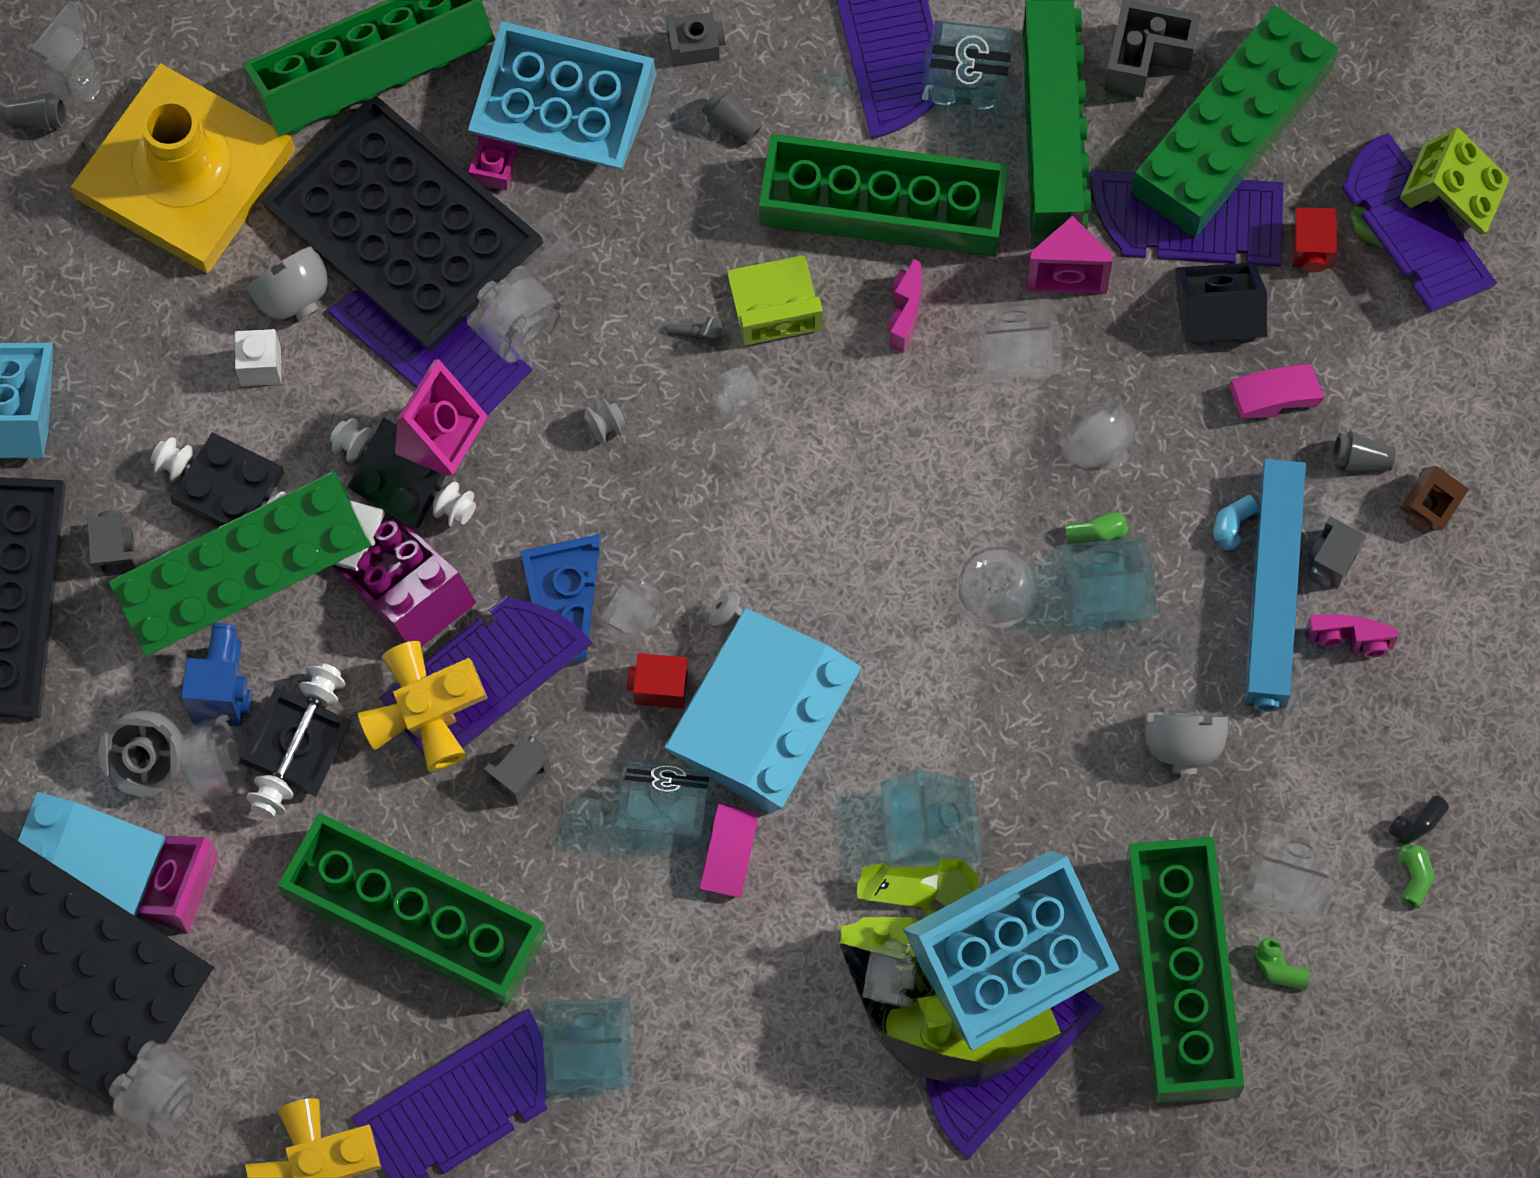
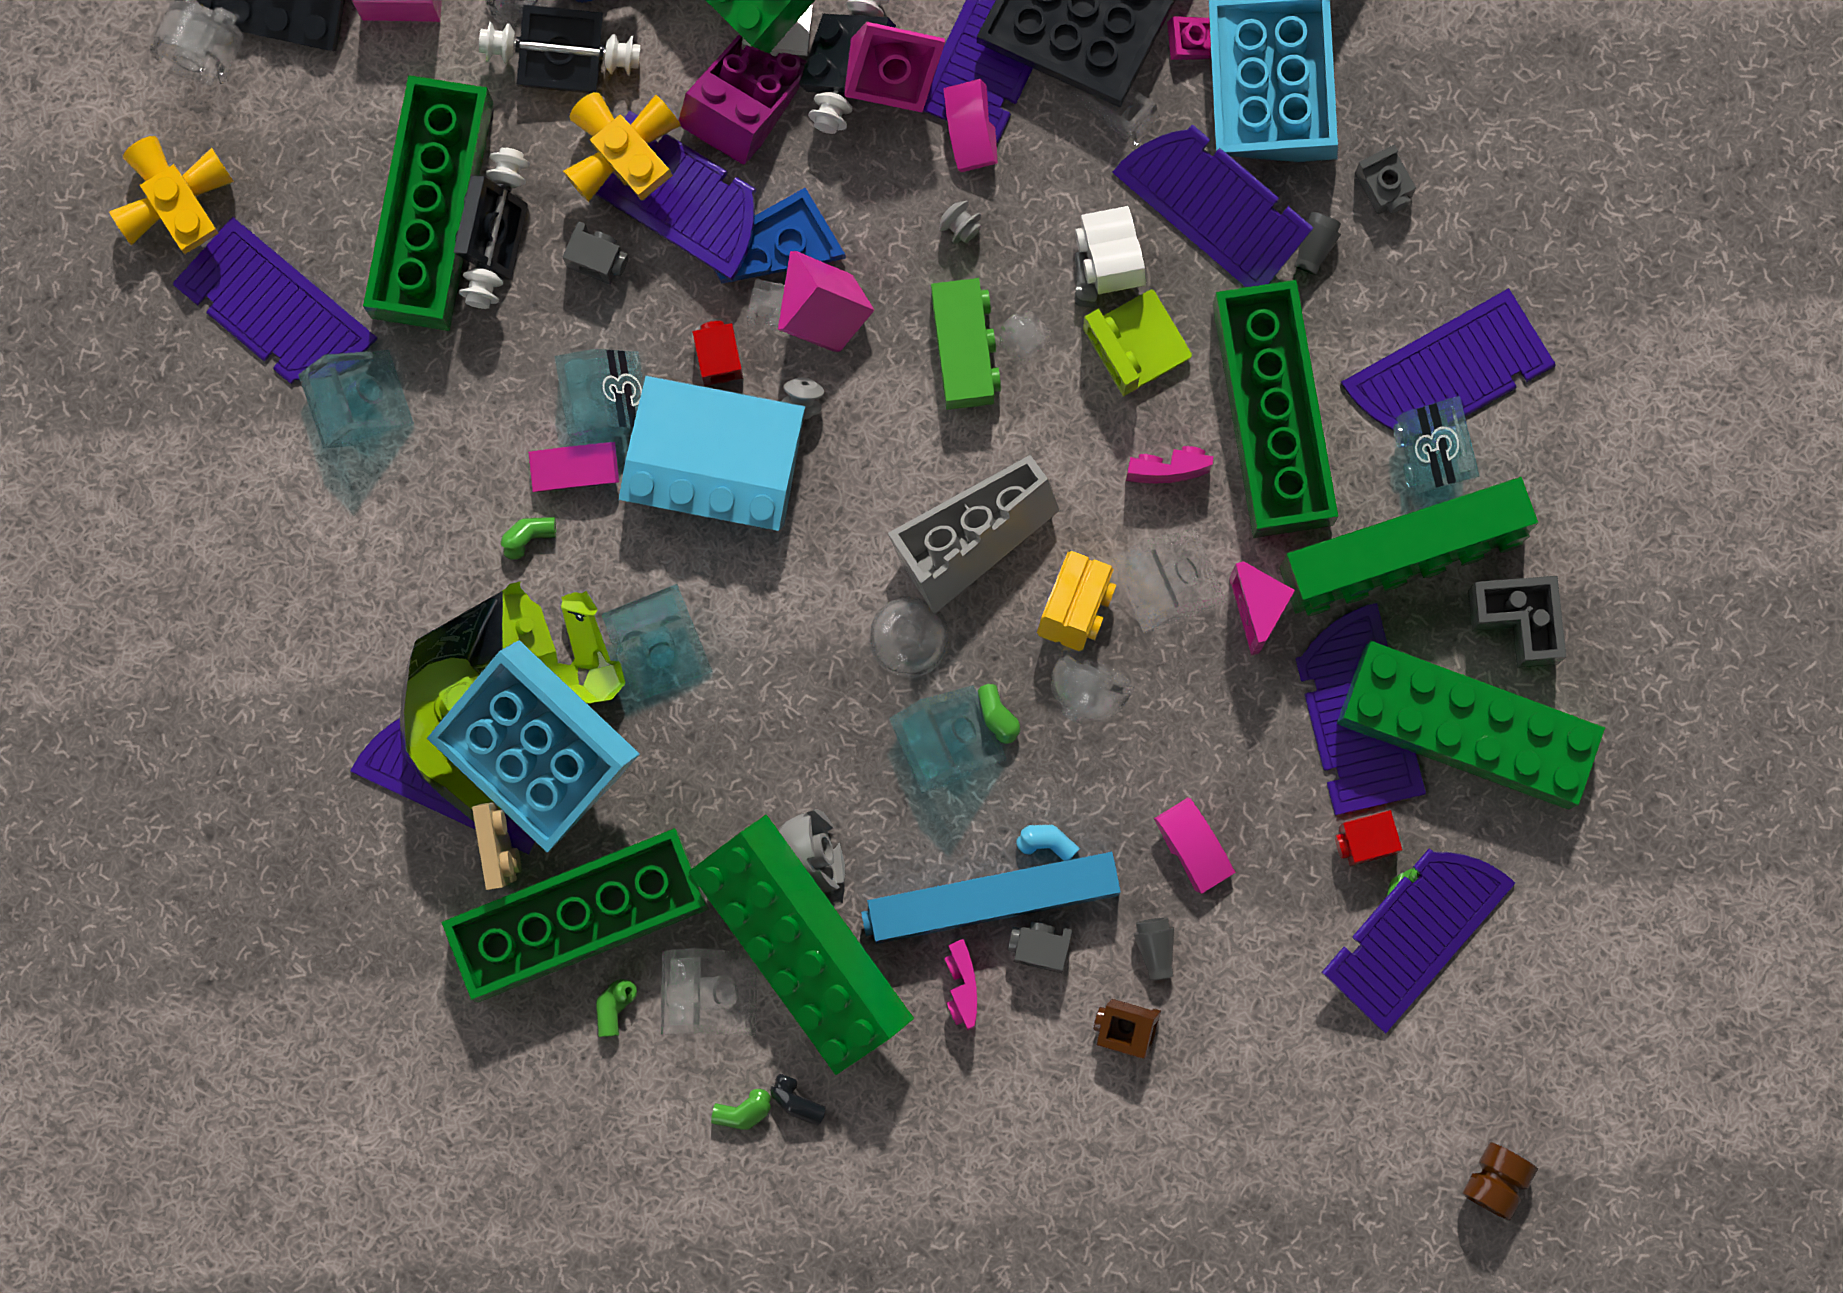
camera: 75 degrees right, 10 degrees up
(466, 857) = (491, 227): none -> black plate
(511, 382) = (969, 125): none -> dark pink slope
(514, 314) = (1035, 103): clear brick -> none
(646, 564) = (821, 303): none -> dark pink slope
(667, 189) = (1215, 204): none -> dark purple piece
(680, 291) = (1111, 249): none -> white brick
(725, 452) = (965, 343): none -> bright green brick
(778, 919) = (523, 532): none -> bright green arm
(890, 974) = (474, 642): clear brick -> none
(917, 495) = (973, 531): none -> light grey wedge
(1013, 422) = (1076, 601): none -> yellow brick
(1112, 1024) = (498, 858): none -> tan plate
(1221, 303) = (1272, 766): black slope -> none
(1277, 759) = (801, 945): none -> green brick
(1460, 175) = (1479, 964): lime bracket -> none

